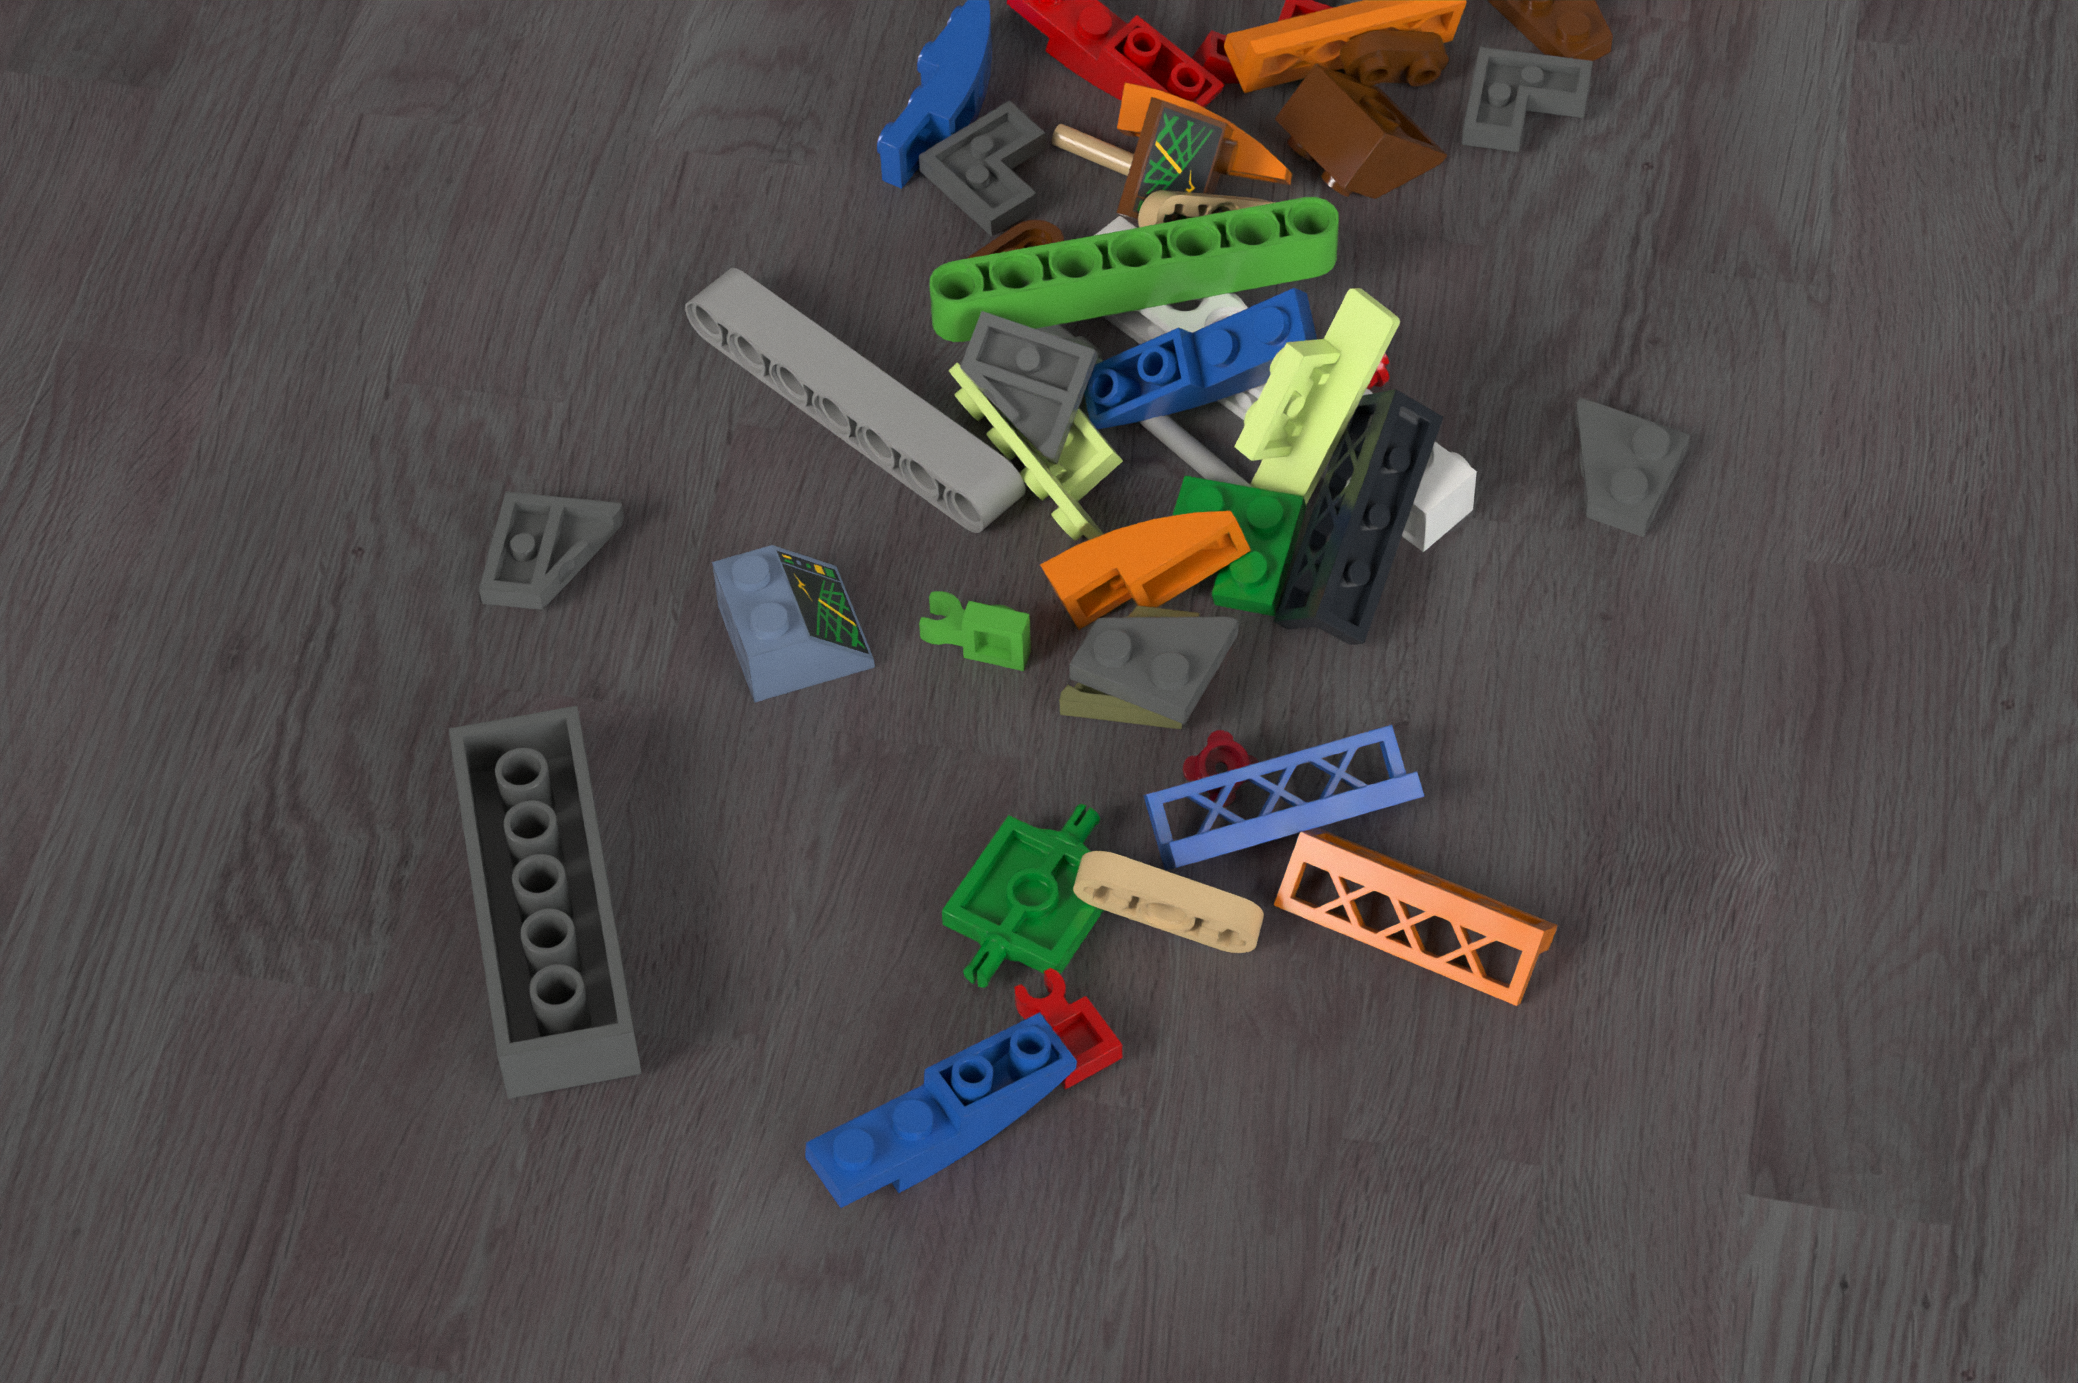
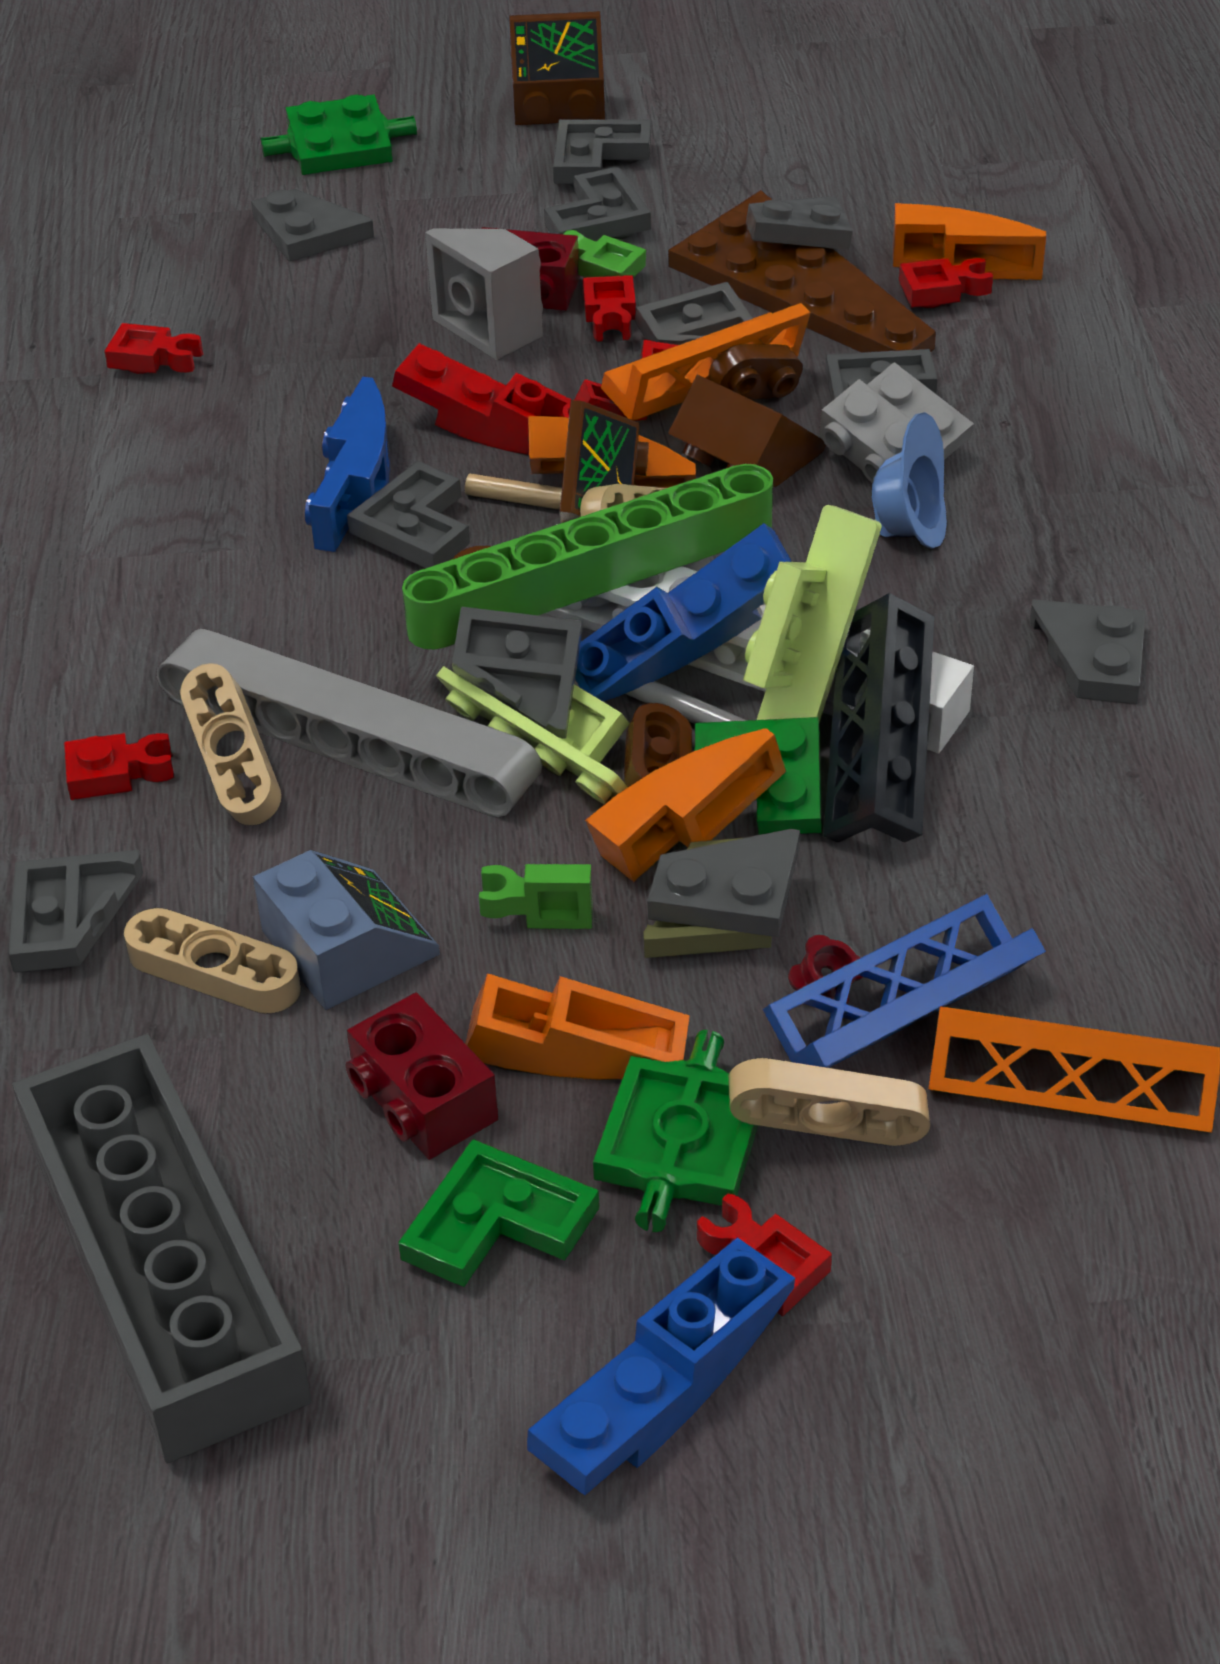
camera: 15 degrees left, 10 degrees down
(618, 395) = (108, 763): none -> red plate
(670, 654) = (227, 981): none -> tan beam
(751, 423) = (249, 759): none -> tan beam
(824, 789) = (421, 1076): none -> dark red brick
(843, 922) = (493, 1196): none -> green plate
(966, 776) = (570, 1031): none -> orange slope
(1138, 502) = (654, 740): none -> reddish brown plate
(1502, 240) = (911, 486): none -> medium blue piece
(1512, 160) = (871, 419): none -> light grey plate

